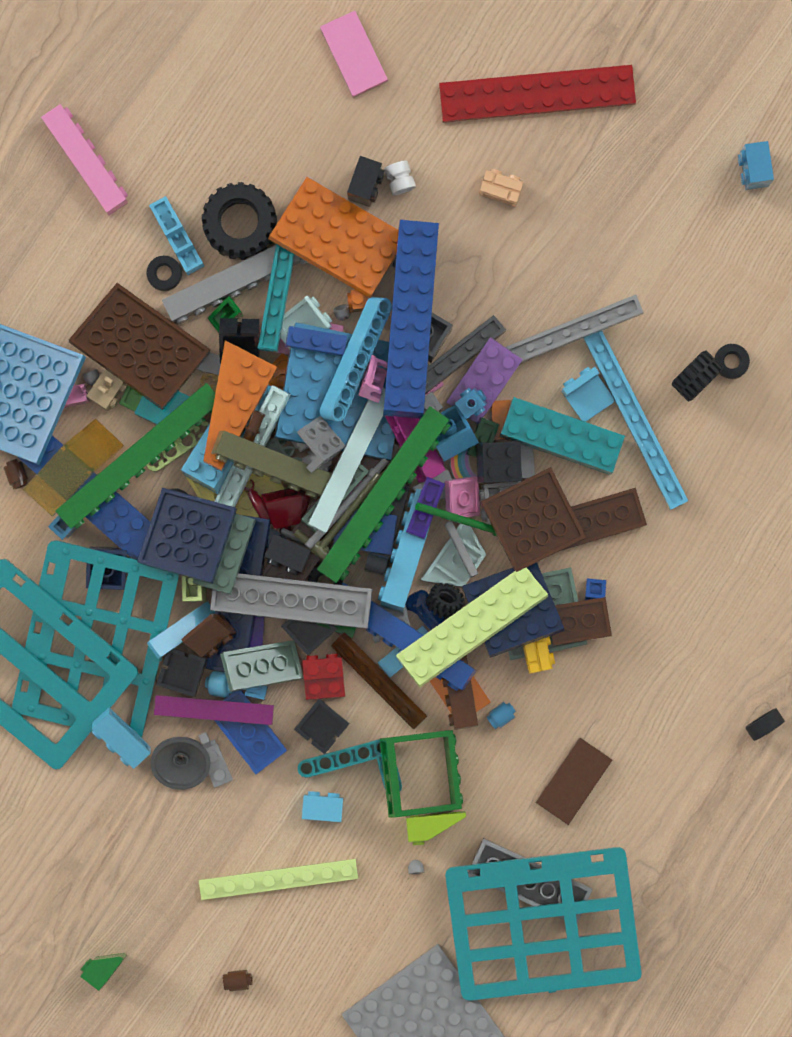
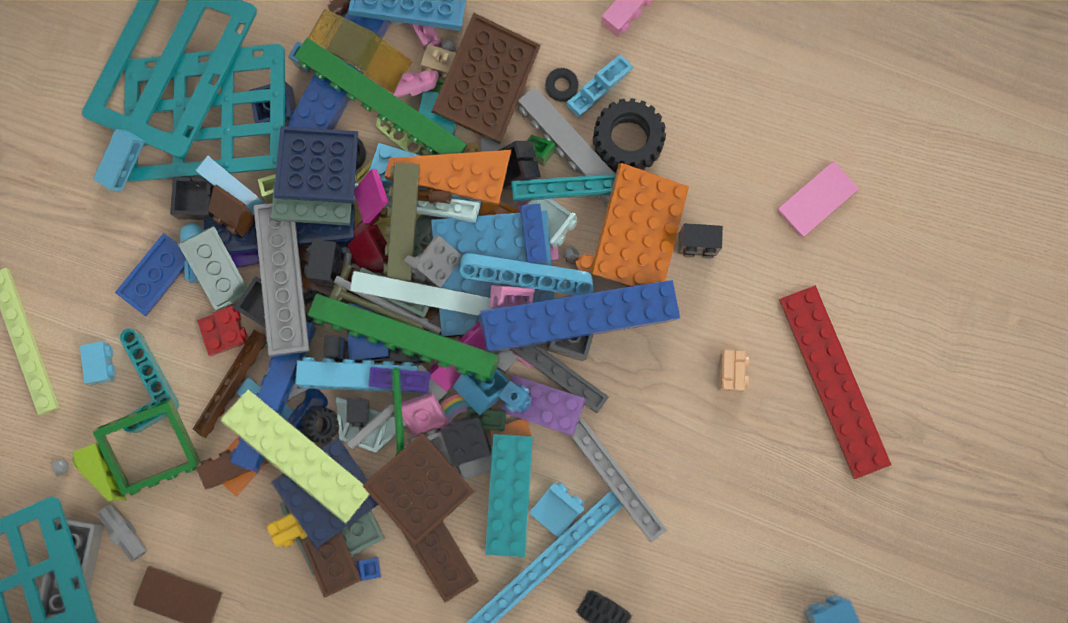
camera: 75 degrees right, 5 degrees down
(124, 419) = (416, 83): none -> bright pink wing
(177, 771) = (108, 220): dark grey dish -> none
(214, 710) = (165, 238): magenta tile -> none
(218, 770) = (121, 251): light grey hinge -> none
(236, 489) = (370, 196): none -> dark pink tile
(321, 725) = (175, 343): black piece -> none
(399, 177) = (712, 273): white wheel -> none
(443, 560) = (357, 412): none -> black brick
(496, 820) = (122, 532): none -> light grey piece
(501, 715) = (224, 509): dark azure brick -> none

